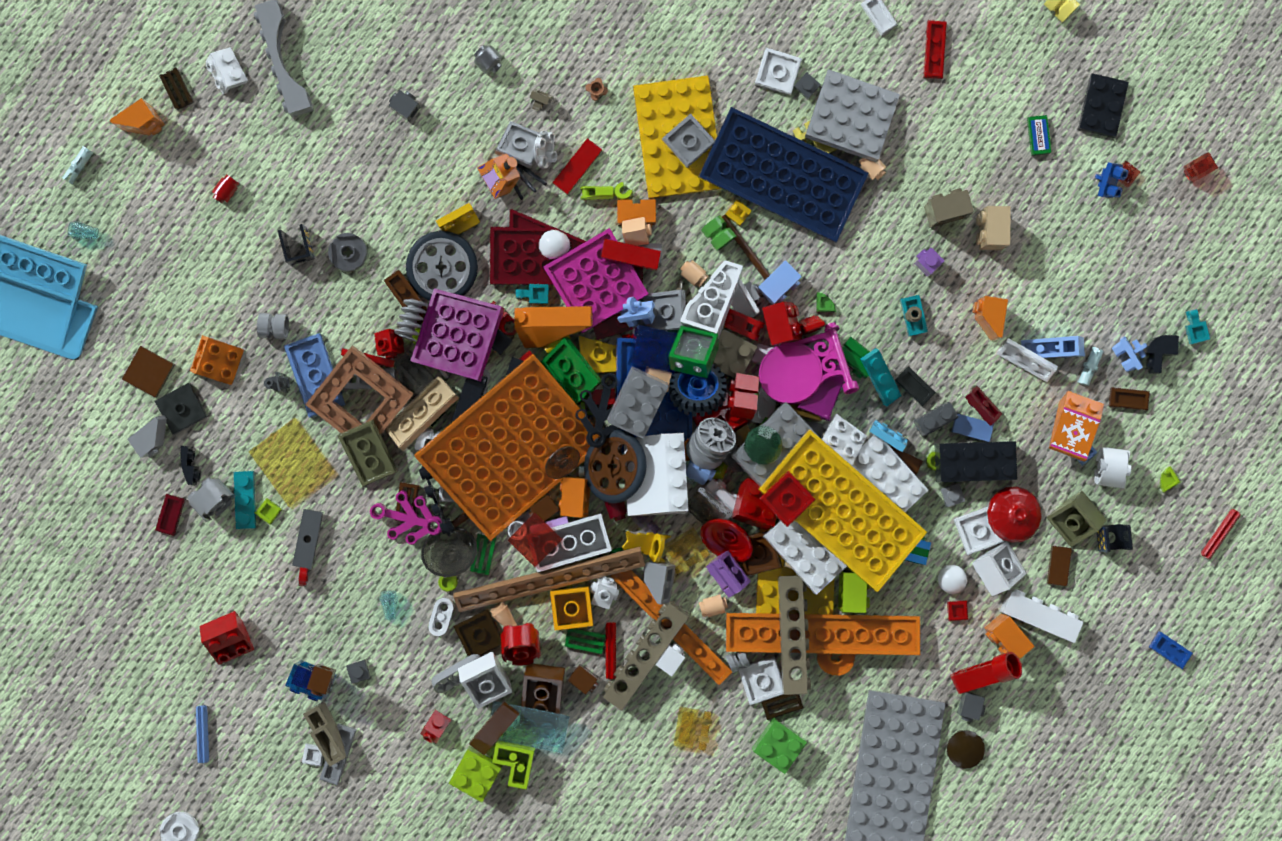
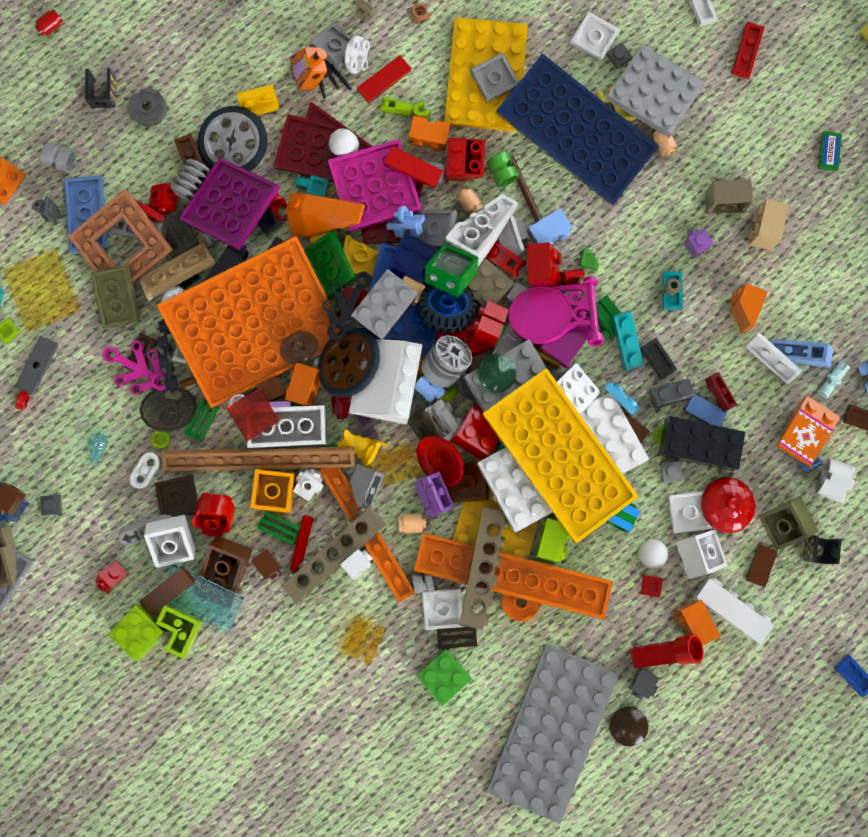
camera: 15 degrees right, 5 degrees down
(503, 615) = (205, 482): light nougat cone -> none
(636, 231) = (424, 148): light nougat brick -> none
(679, 231) = (465, 159): none -> red slope
(738, 212) = (526, 156): yellow tile -> none
(787, 498) = (508, 428): red plate -> none

